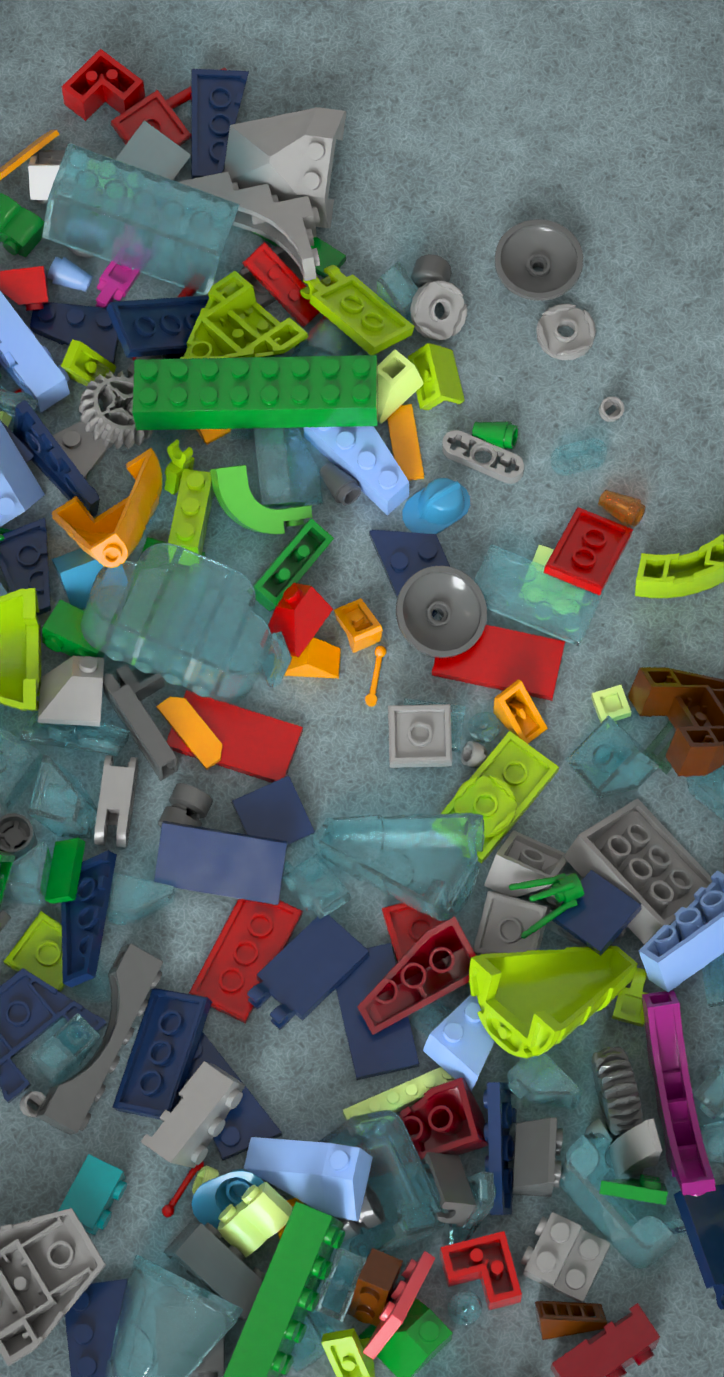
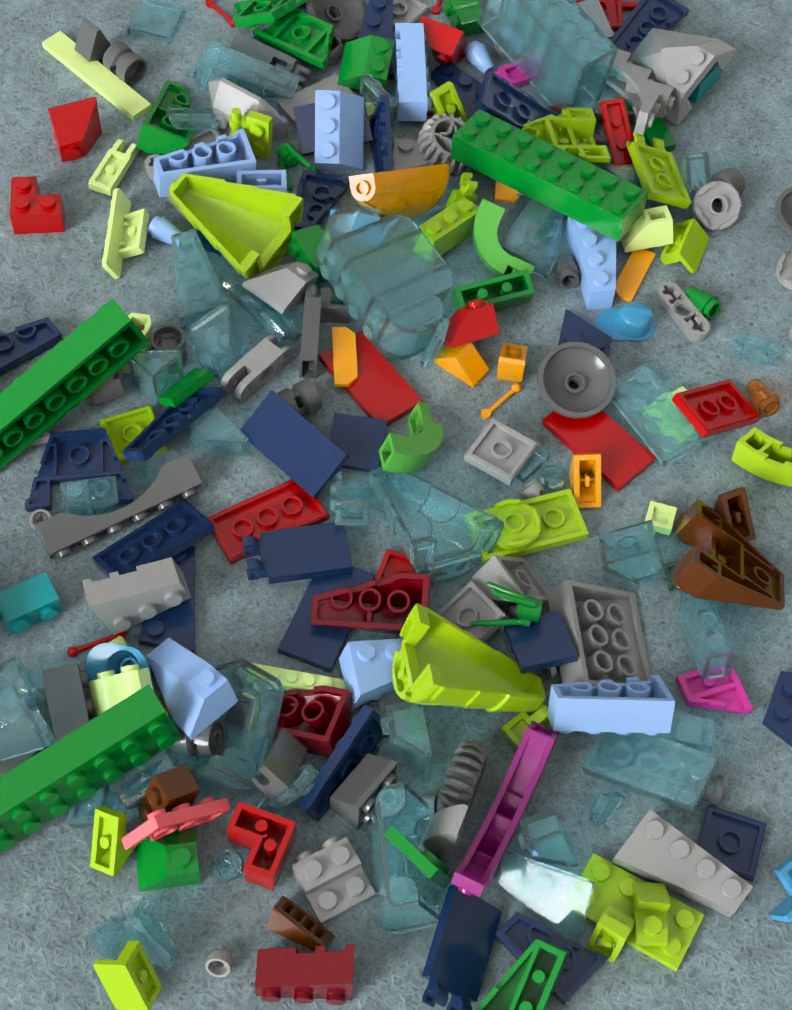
camera: 30 degrees right, 10 degrees down
(340, 768) = (413, 452): none -> bright green arch
(679, 654) = (735, 509): none -> reddish brown slope

